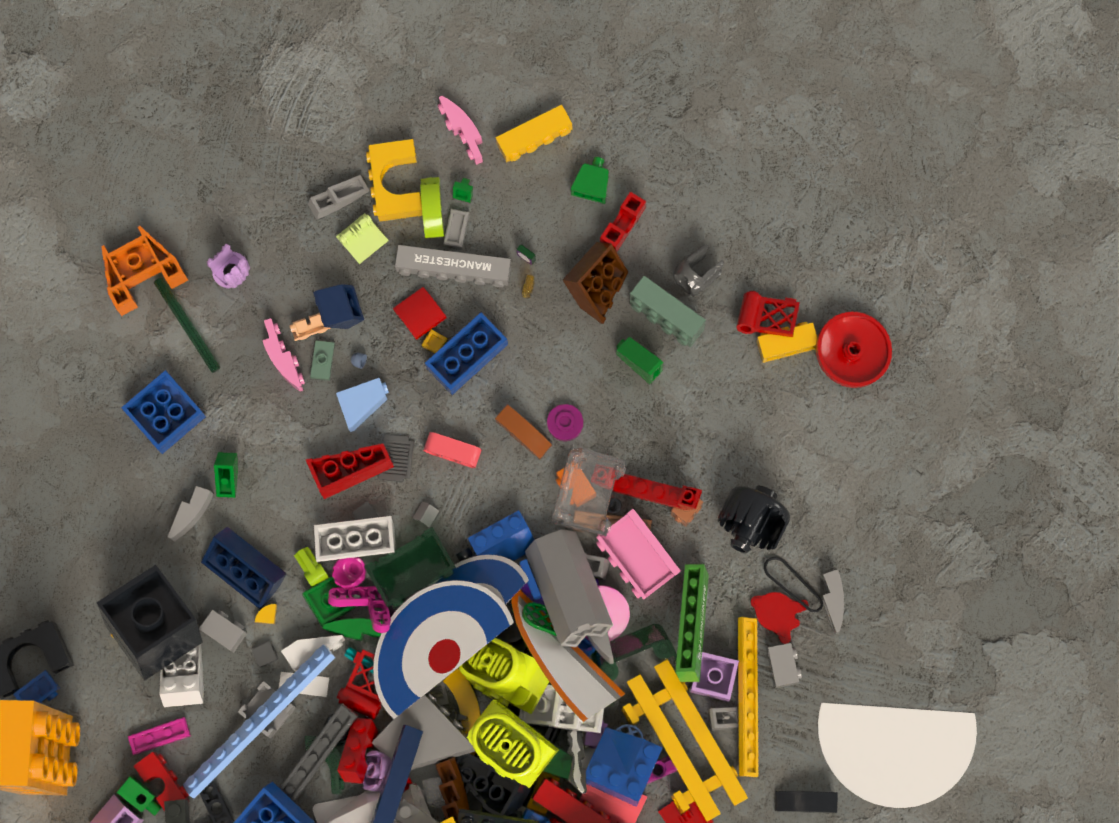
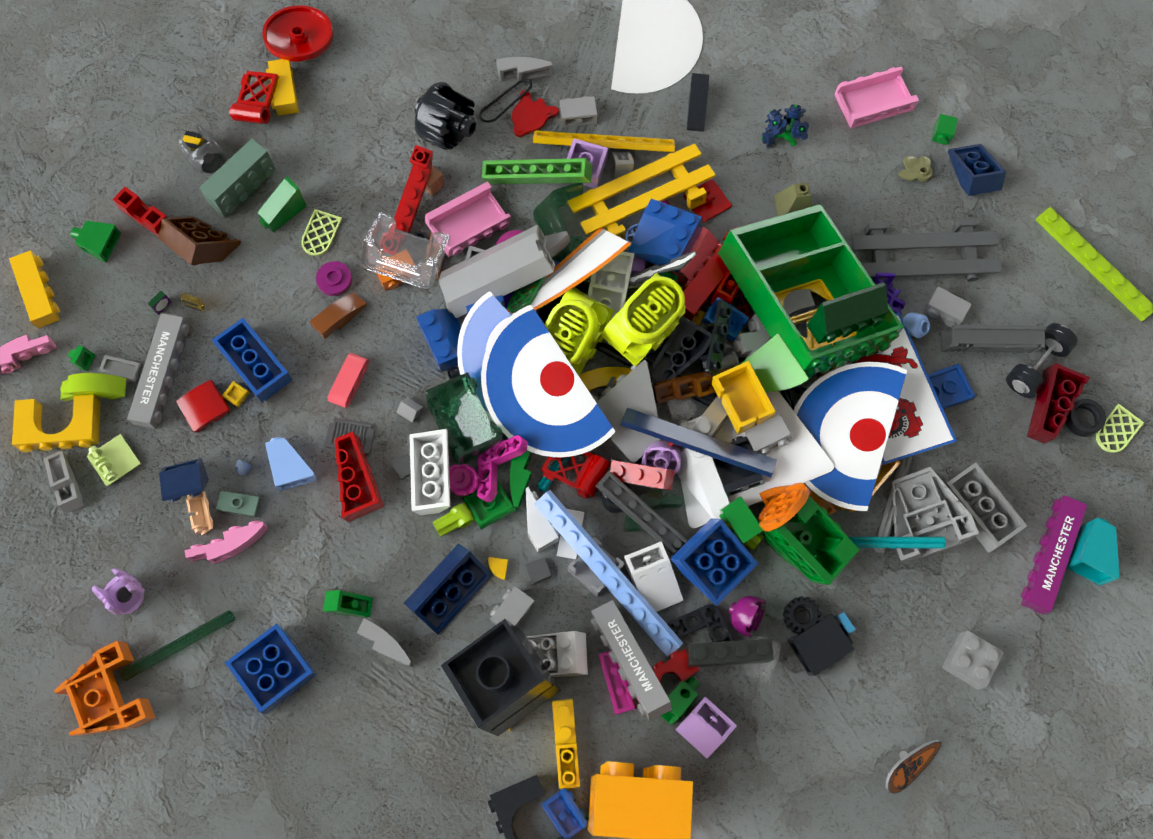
camera: 95 degrees left, 5 degrees down
(99, 690) = (565, 743): none -> yellow slope
(171, 745) = (631, 660): none -> light grey brick
(257, 767) = (653, 576): none -> white slope
(641, 395) = (334, 231): none -> yellowish green window
(714, 256) = (193, 140): none -> tile

